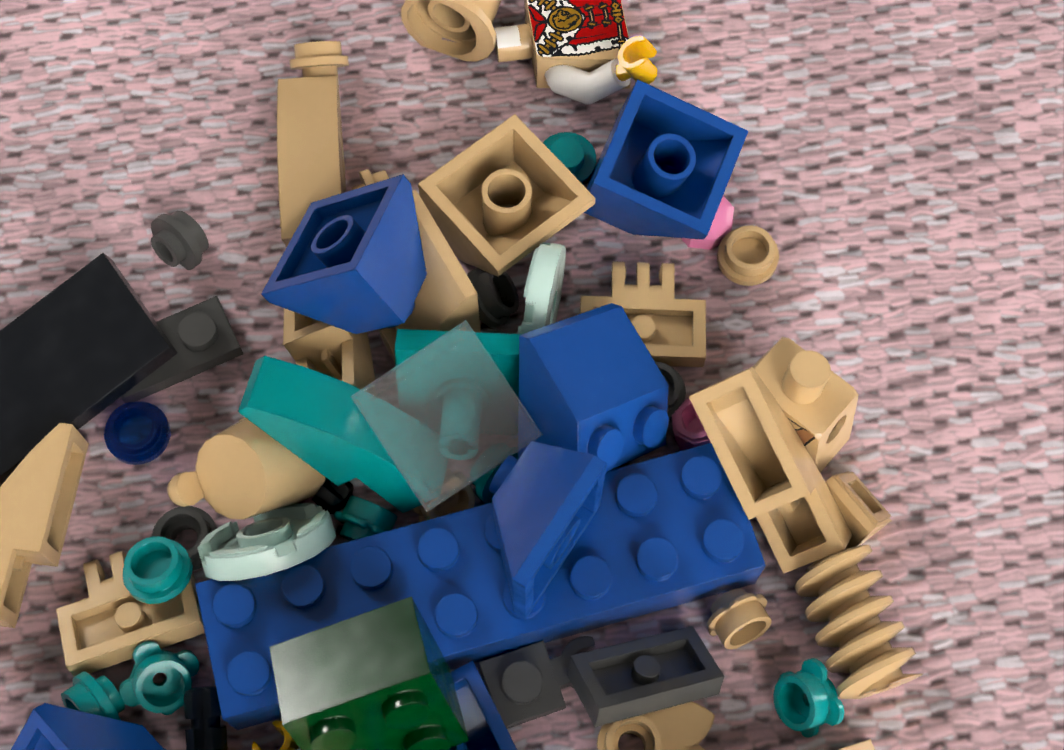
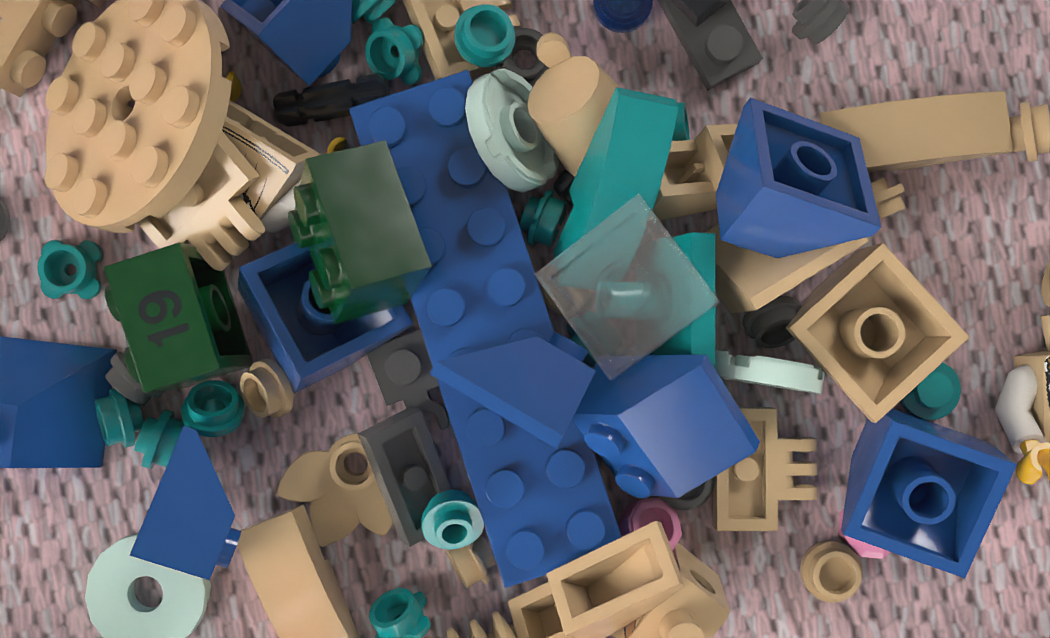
camera: 90 degrees right, 20 degrees up
(693, 625) = (451, 520): none -> teal plate

